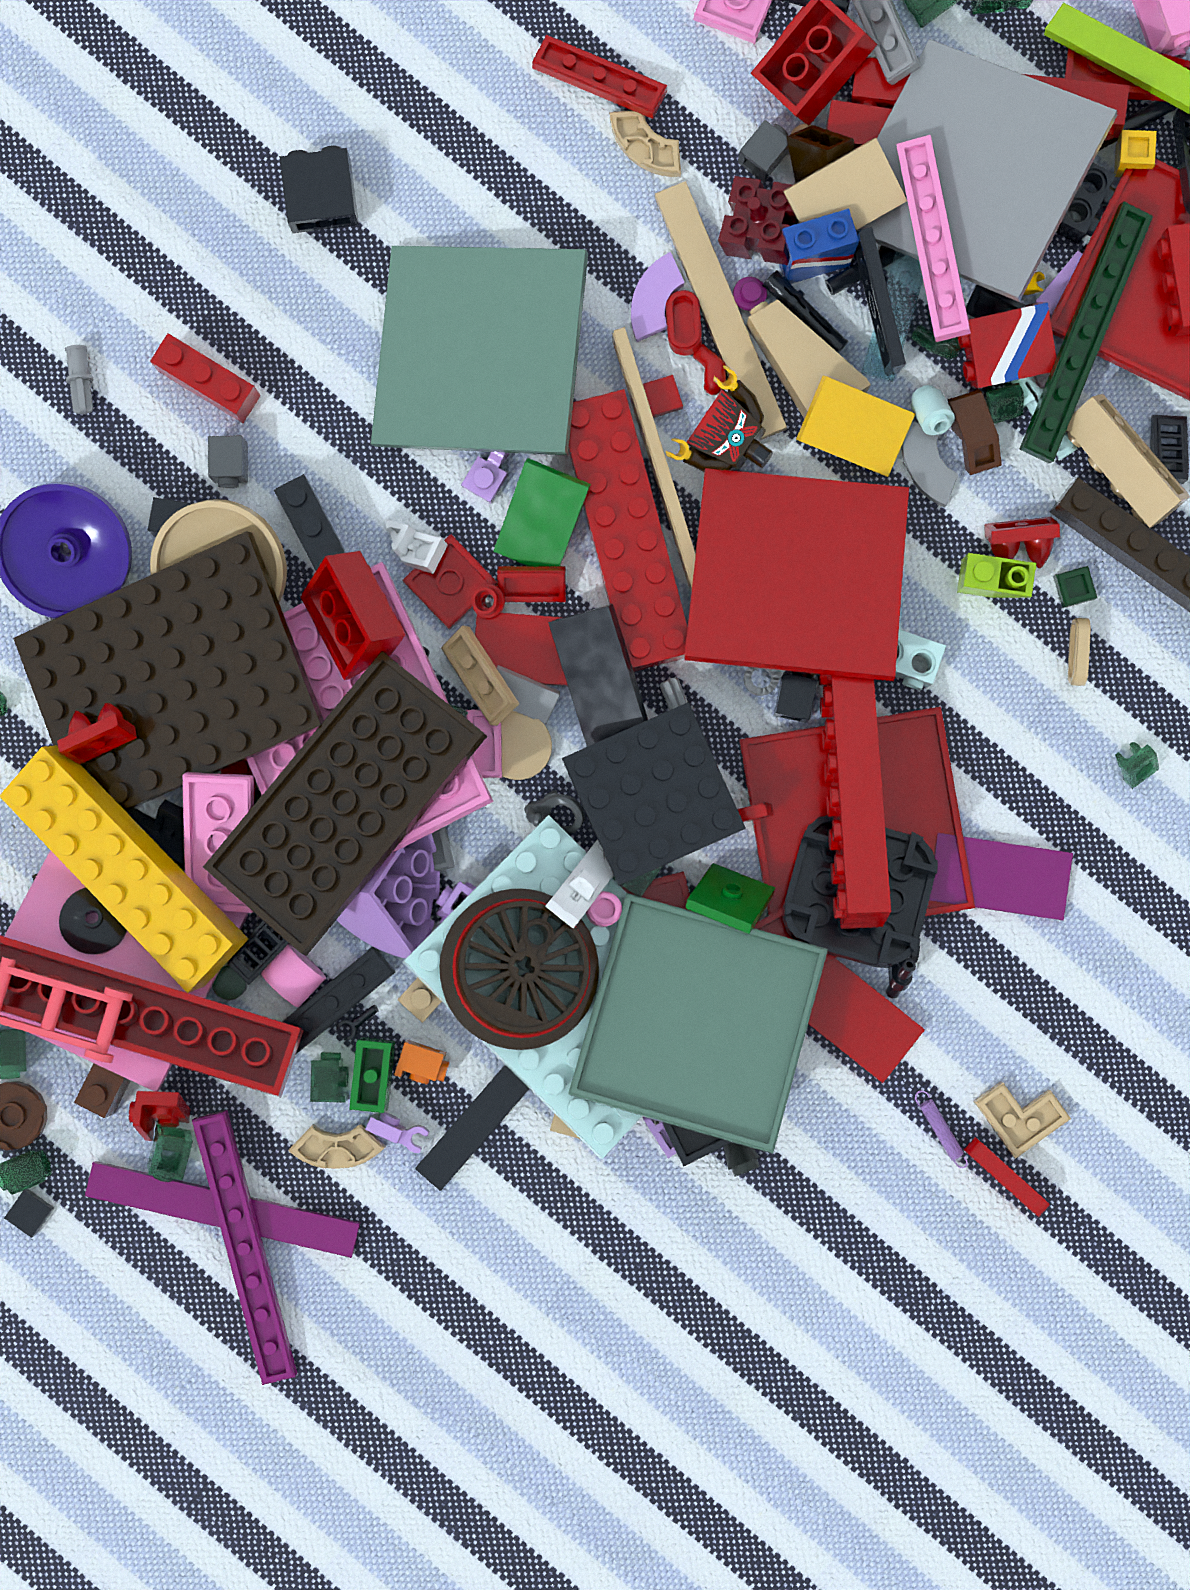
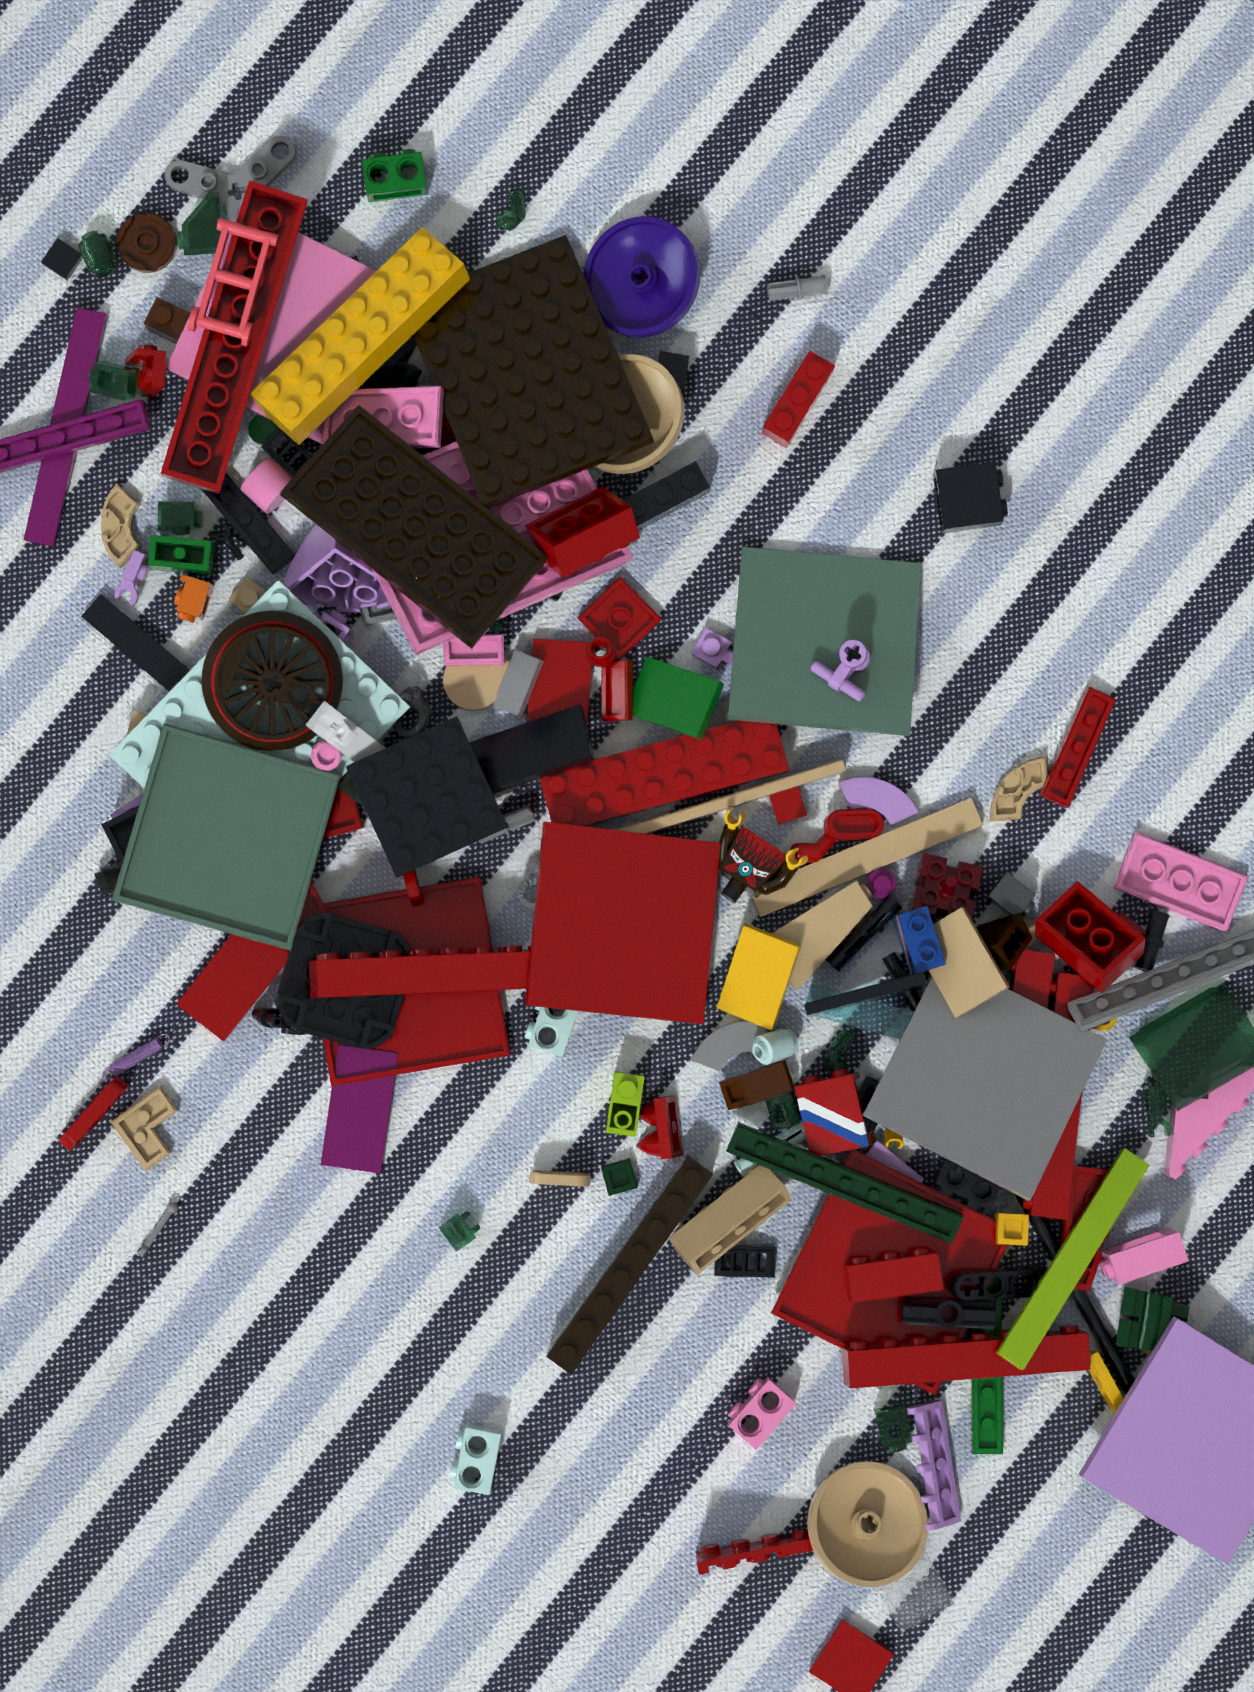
camera: 80 degrees right, 0 degrees up
(87, 937) = (301, 300): black dish -> none
(91, 740) = (471, 303): red tile -> none
(228, 460) = (724, 420): dark grey brick -> none
(416, 548) = (648, 587): white slope -> none
(480, 675) = (533, 645): tan tile -> none
(524, 328) = (839, 679): none -> lavender piece
(730, 898) = (337, 867): green plate -> none
(795, 696) = (515, 925): black brick -> none
(933, 238) = (919, 1039): bright pink plate -> none
(1112, 1089) = (172, 1208): none -> light grey hinge

